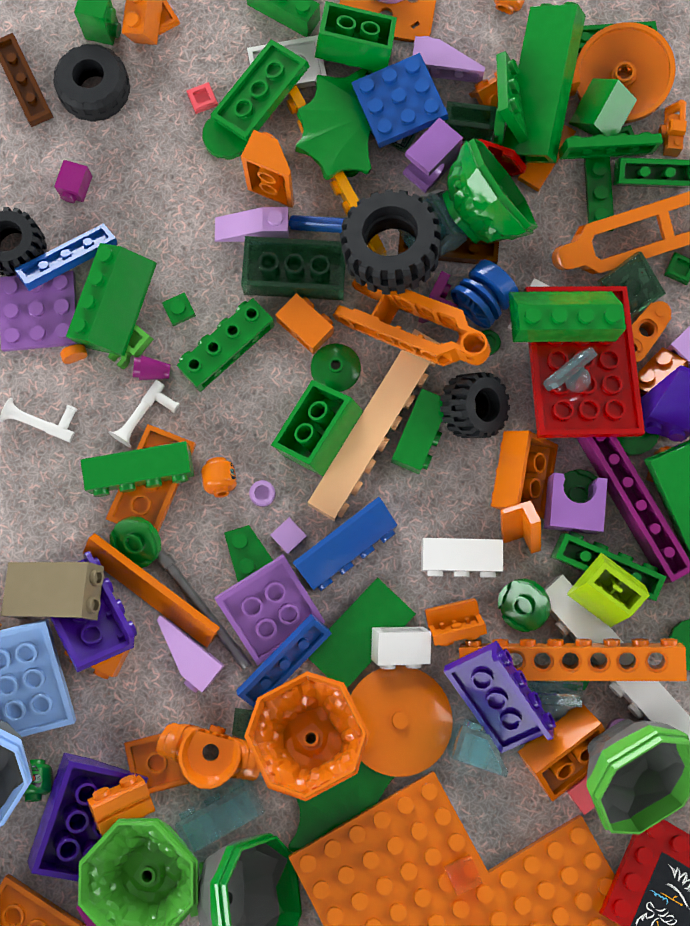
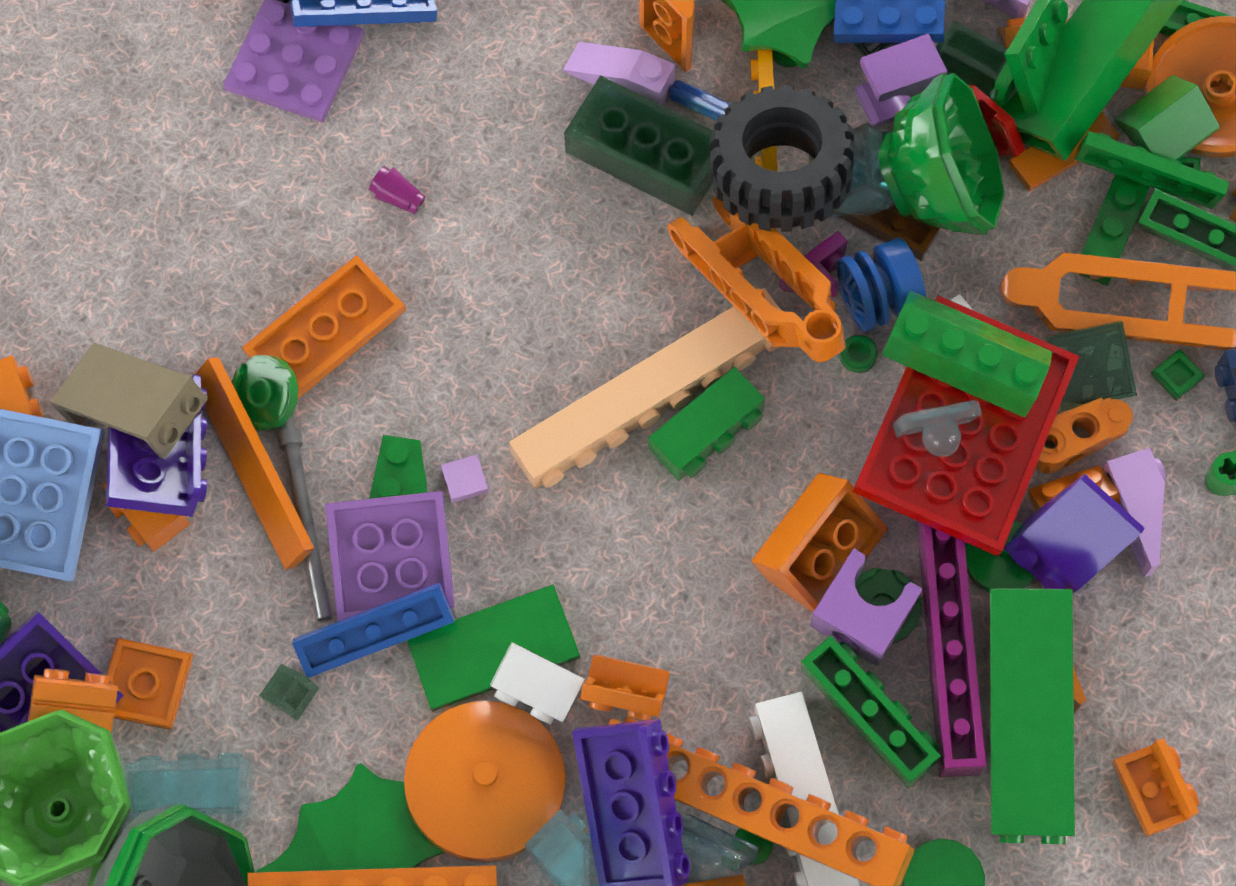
camera: 30 degrees right, 10 degrees down
(60, 431) = (194, 164): white piece -> none
(73, 353) = (309, 128): orange tile -> none
(111, 299) = (391, 83): green slope -> none
(137, 468) = (314, 300): green brick -> none
(138, 343) = (390, 148): bright green plate -> none
(153, 394) = (384, 224): white piece -> none
(178, 309) = (471, 133): green plate -> none
(185, 745) = (190, 672): orange piece -> none
(192, 659) = (256, 570): lavender slope -> none
(218, 477) = (412, 361): orange head -> none
(225, 344) = (508, 202): green brick -> none
(262, 493) = (458, 410): lavender tile -> none
(281, 729) = (350, 722): orange rock -> none
(305, 323) = (625, 221): orange brick -> none
(317, 427) = (570, 354): green brick -> none
(337, 379) = (638, 311): green dish -> none
(346, 544) = (530, 518): blue slope -> none
(462, 556) = (678, 608): white brick -> none
(490, 405) = (820, 418): black tyre -> none
(522, 522) = (776, 600): orange panel -> none
(524, 605) = (730, 709): green tile -> none
(608, 591) = (846, 731): lime slope -> none

